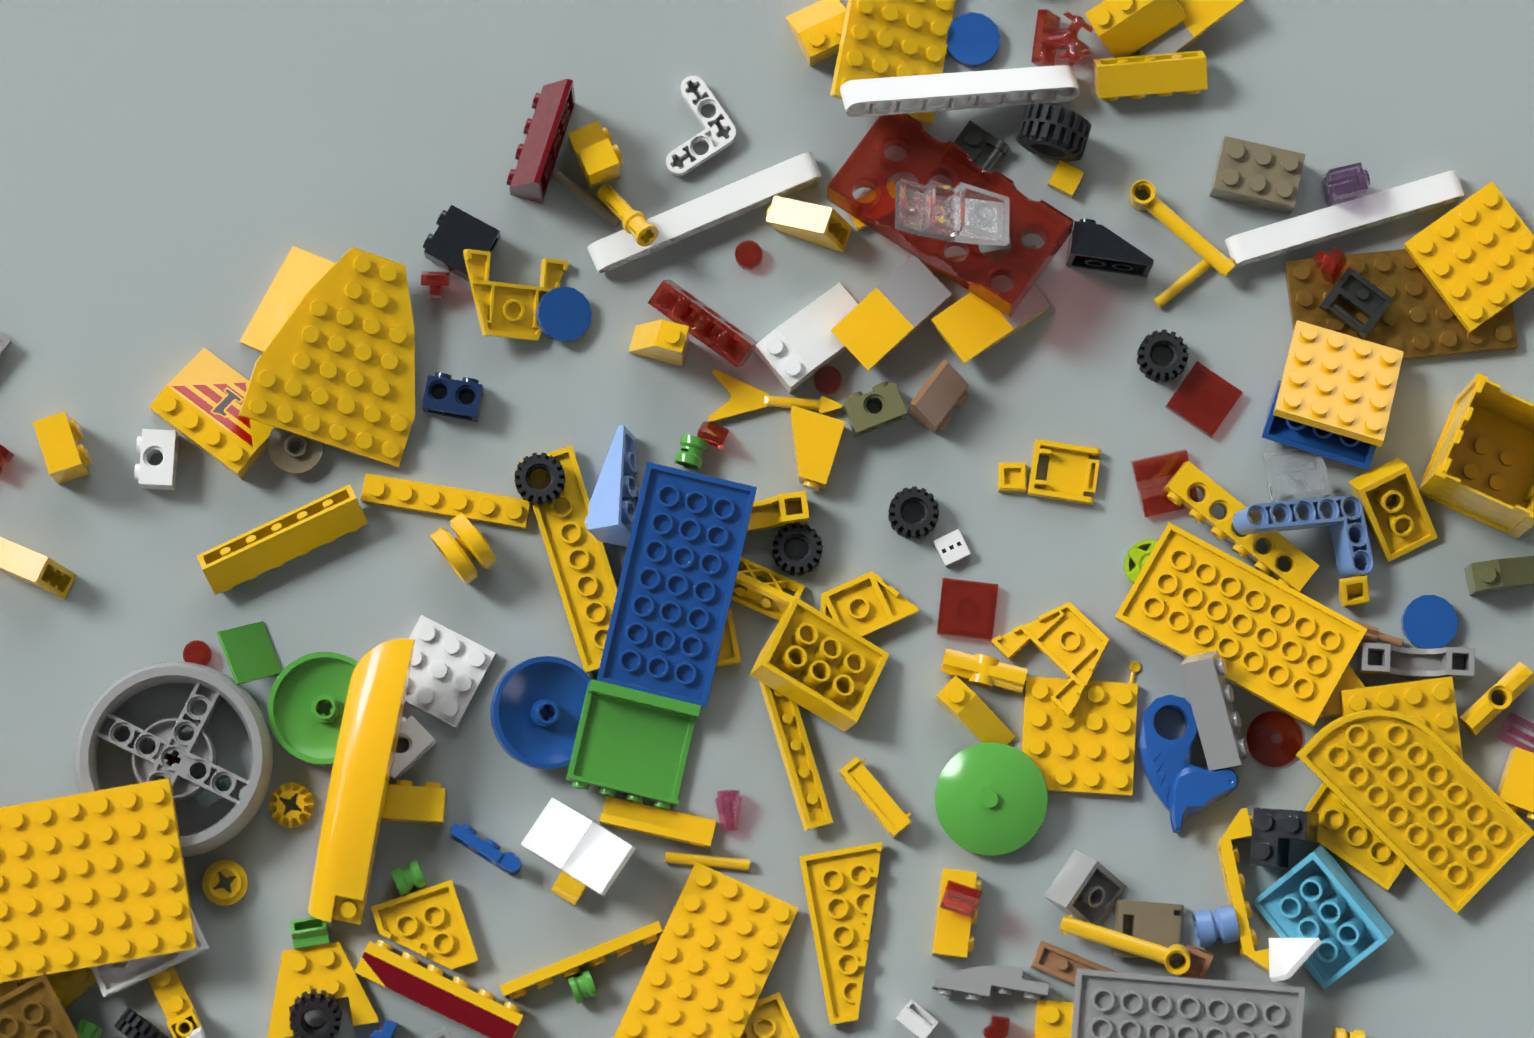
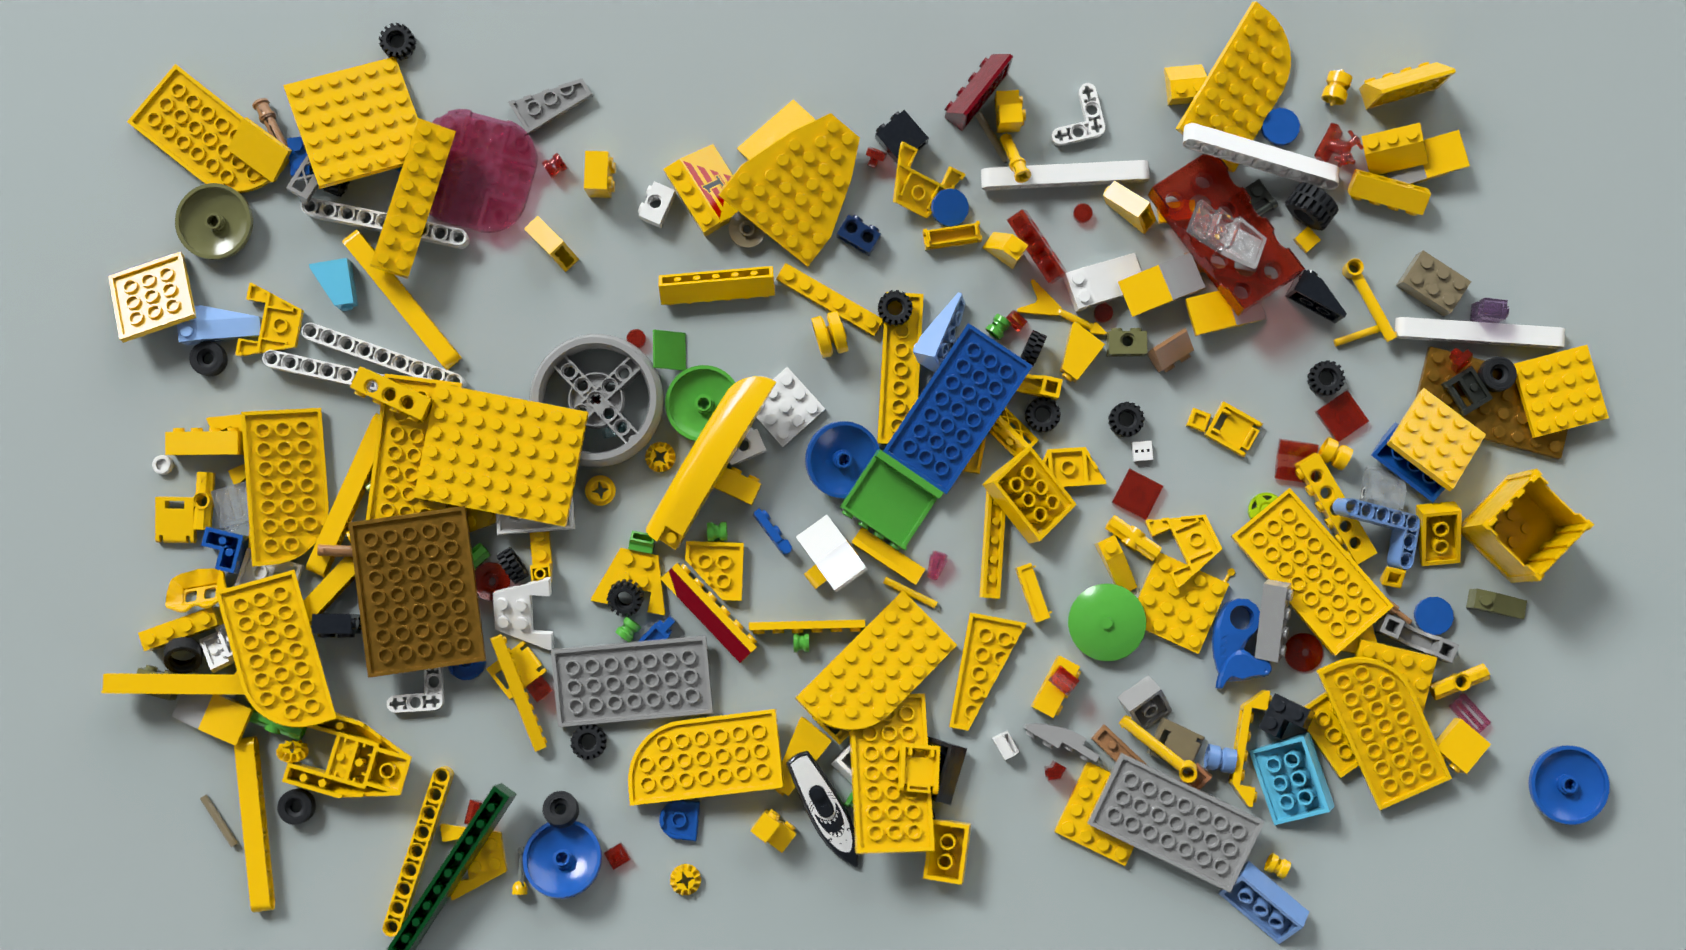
camera: 25 degrees right, 5 degrees up
(581, 352) = (952, 236): none -> yellow container
(749, 462) = (1033, 347): none -> black tyre
(1215, 454) = (1336, 454): none -> yellow wheel
(1288, 955) = (1261, 797): white slope -> none
(1388, 250) = (1508, 374): none -> black tyre

